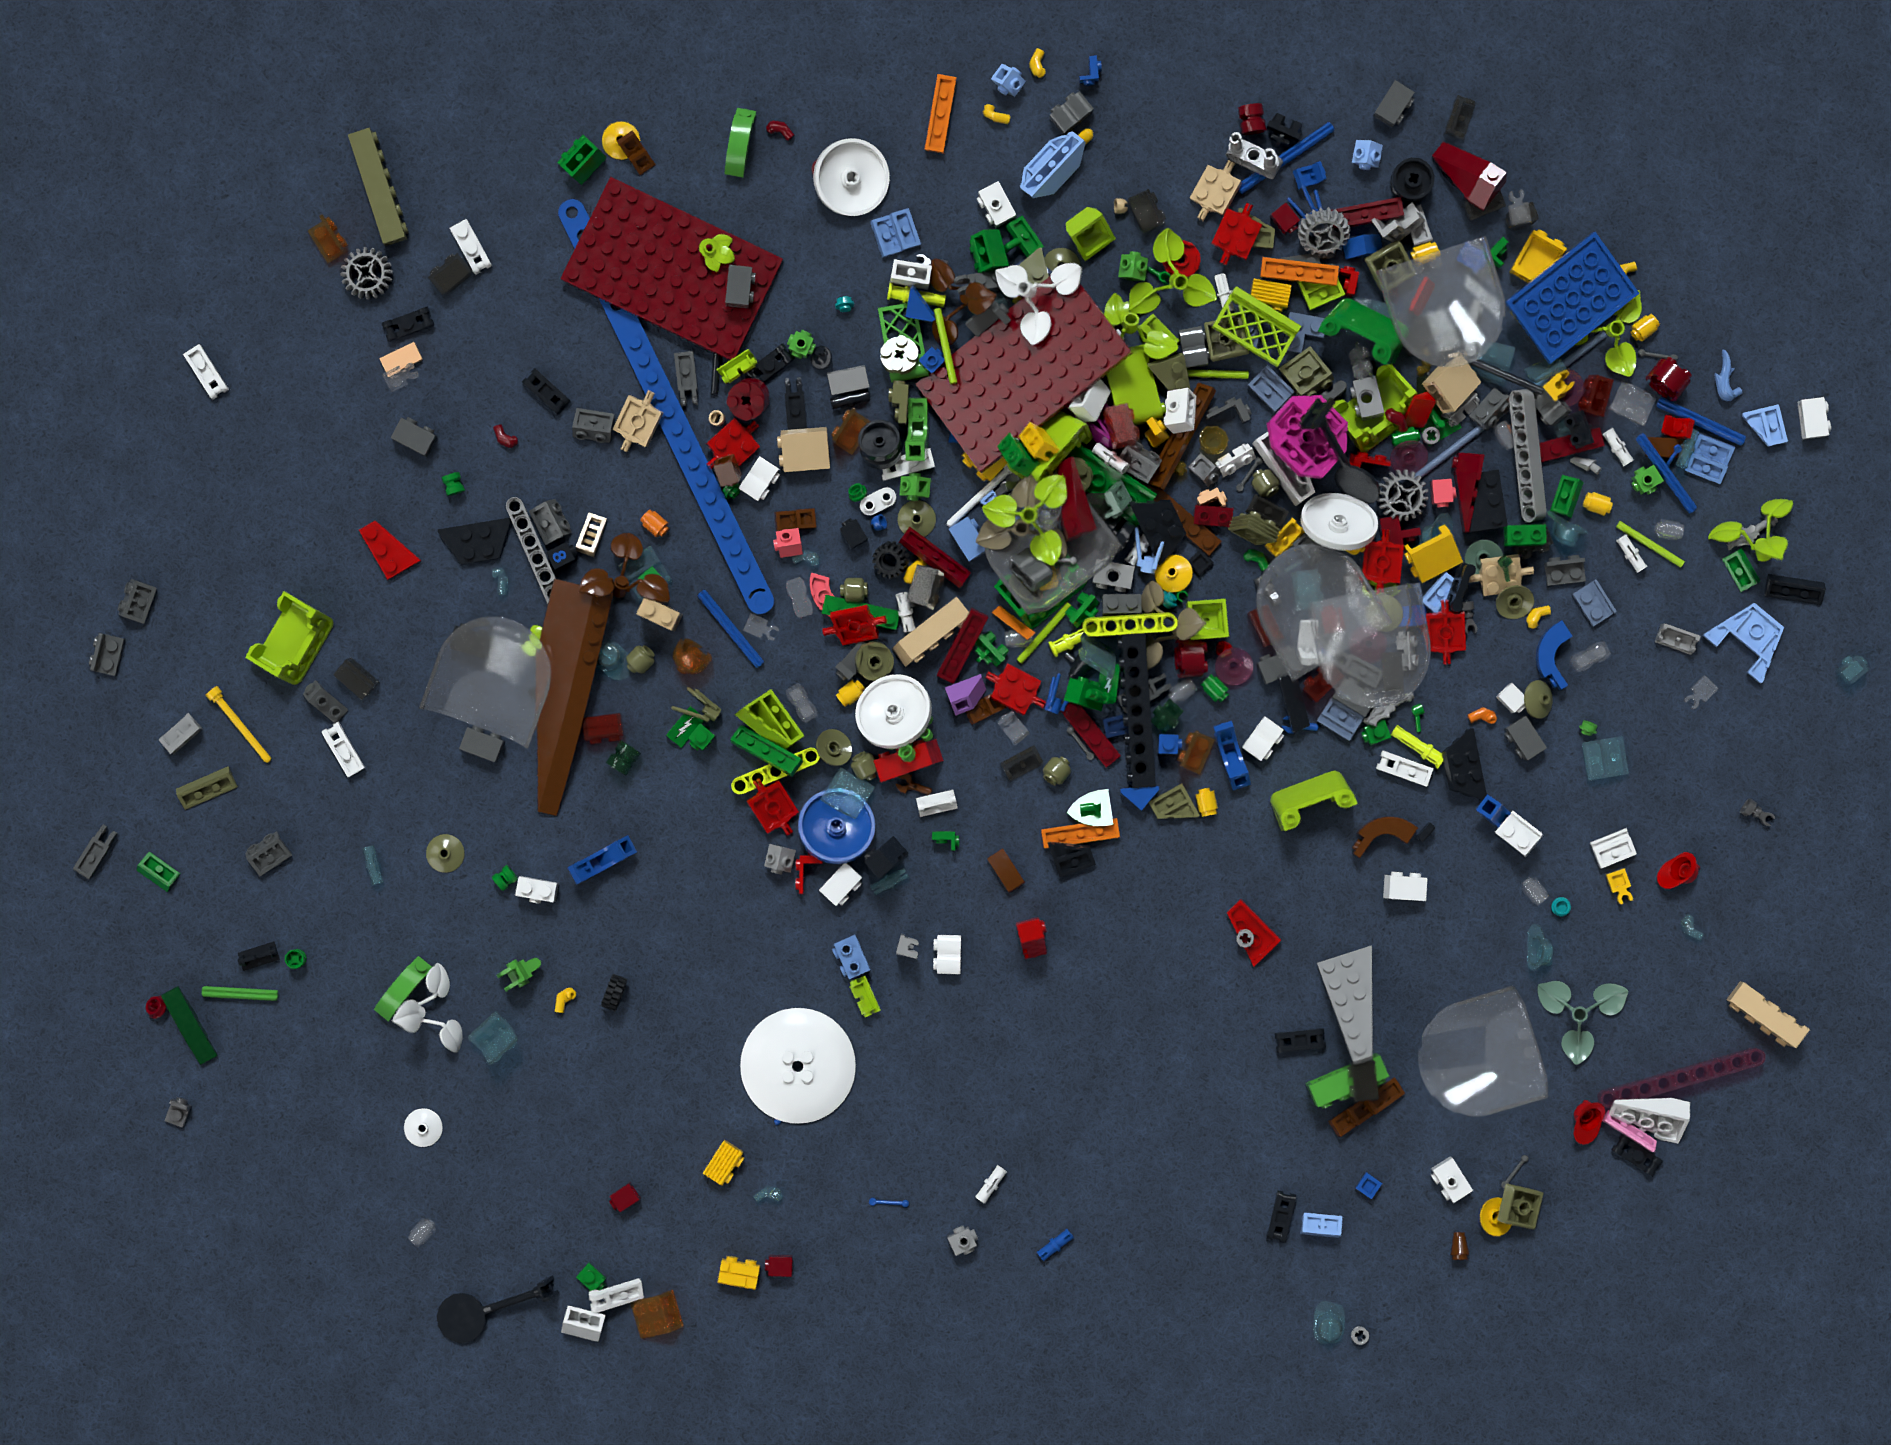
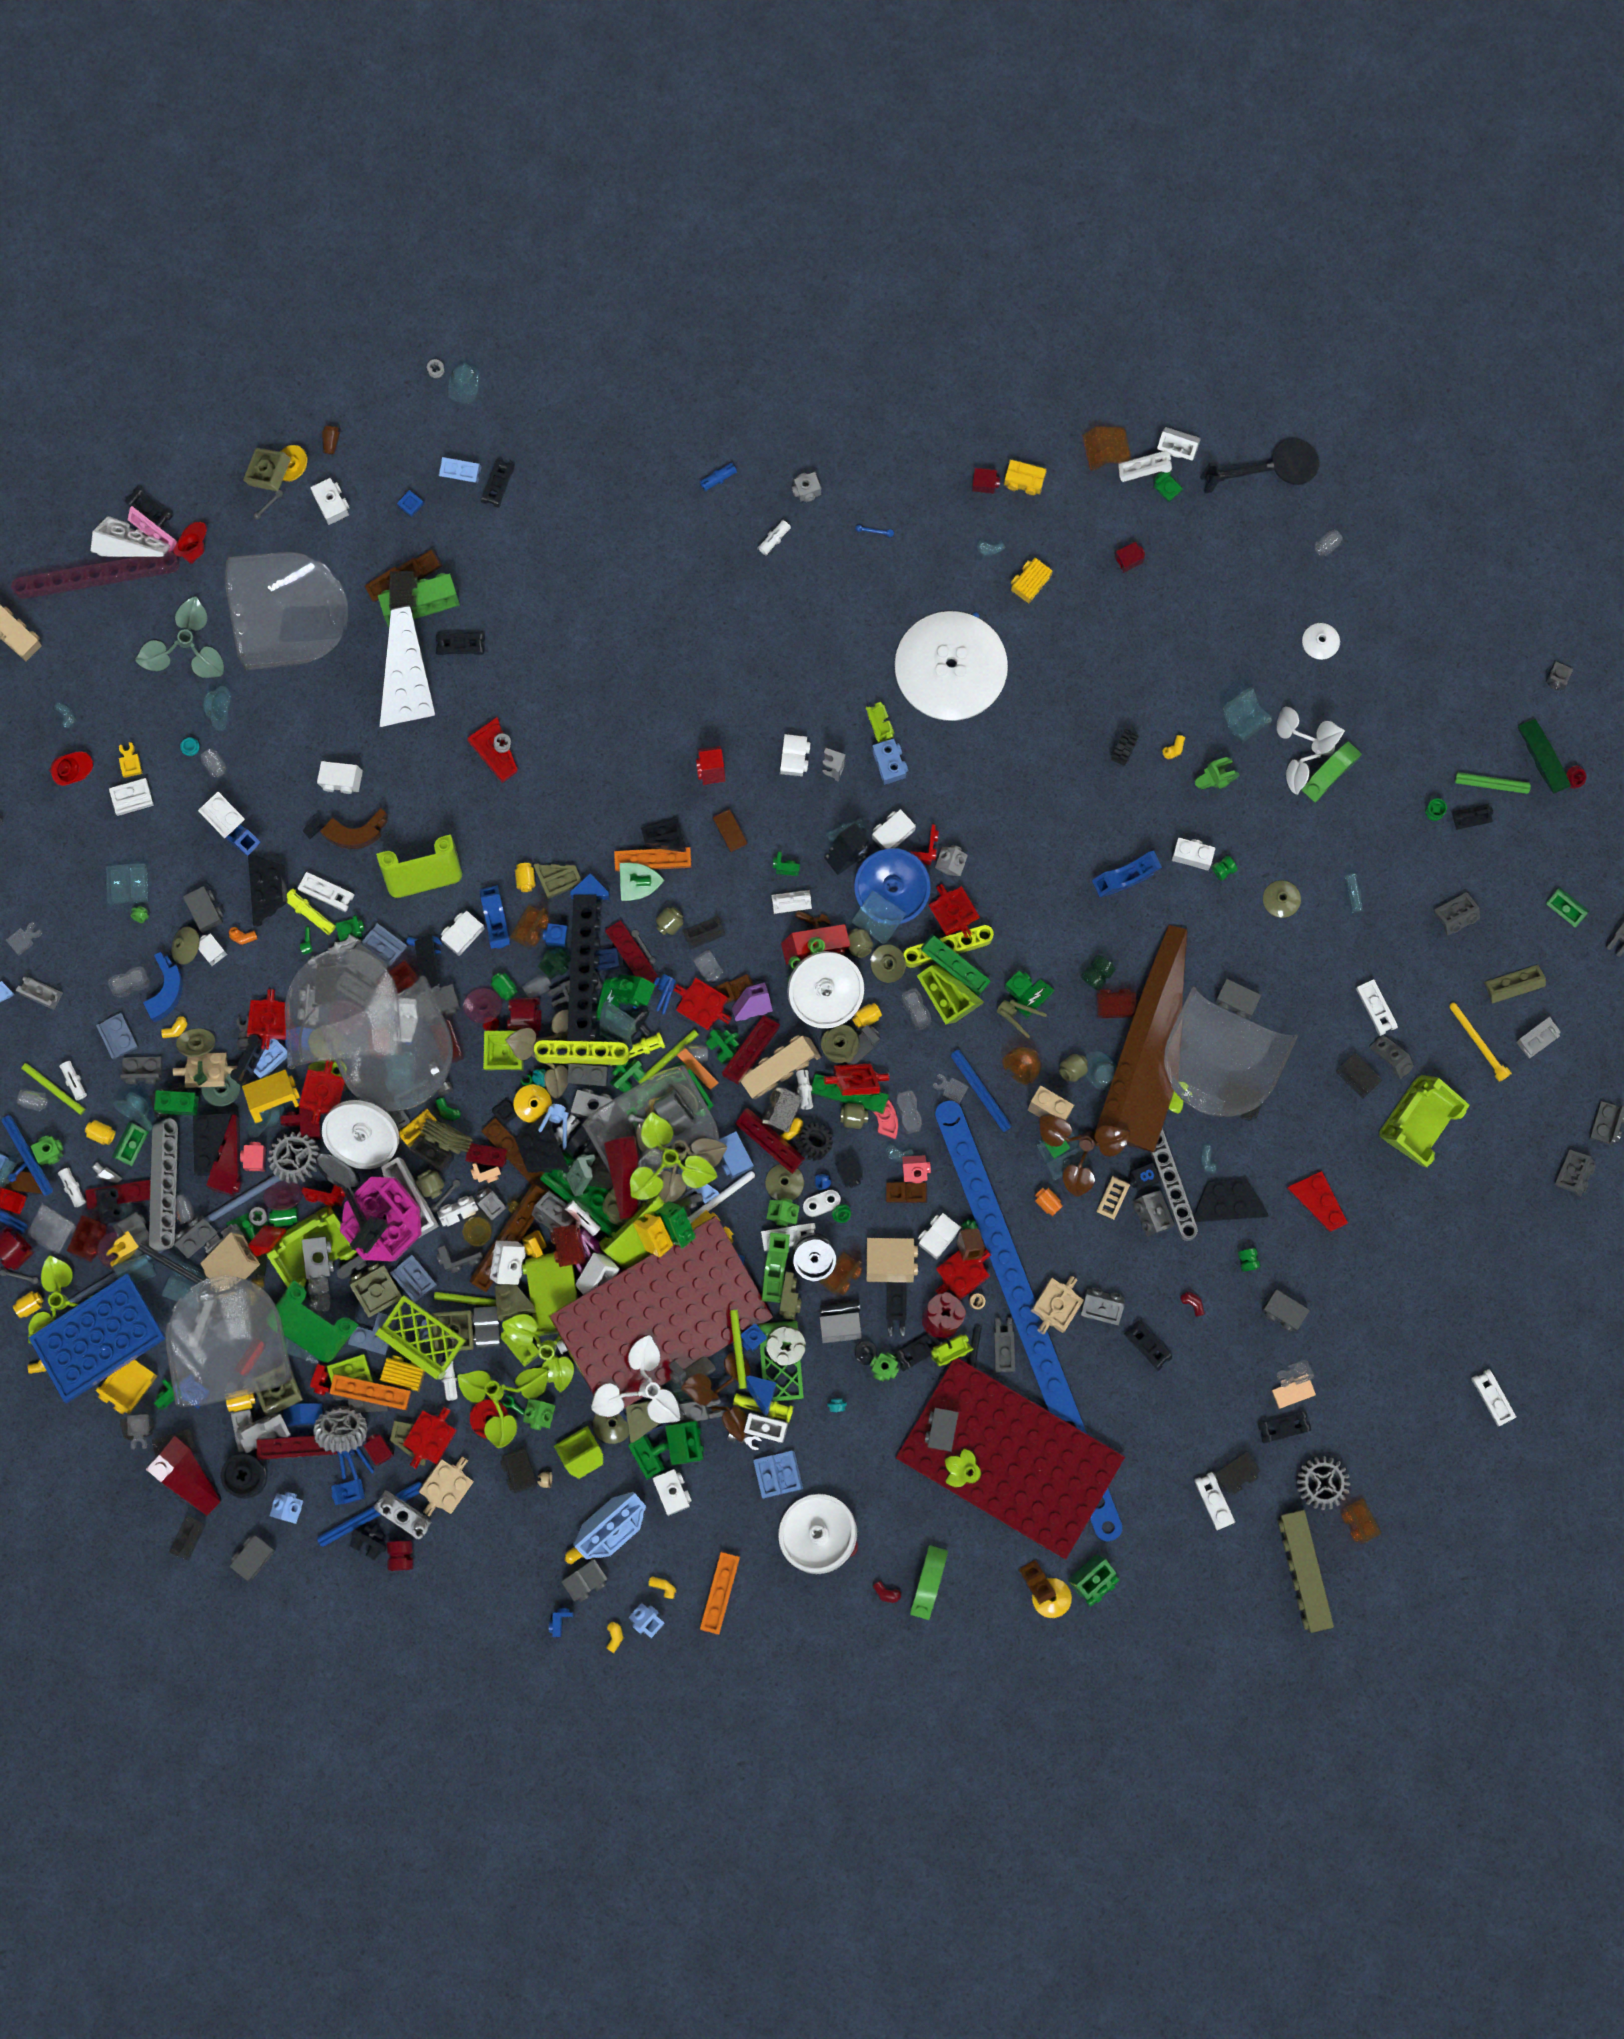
camera: 175 degrees left, 10 degrees down
(1396, 418) = (289, 1232): dark red arm -> none

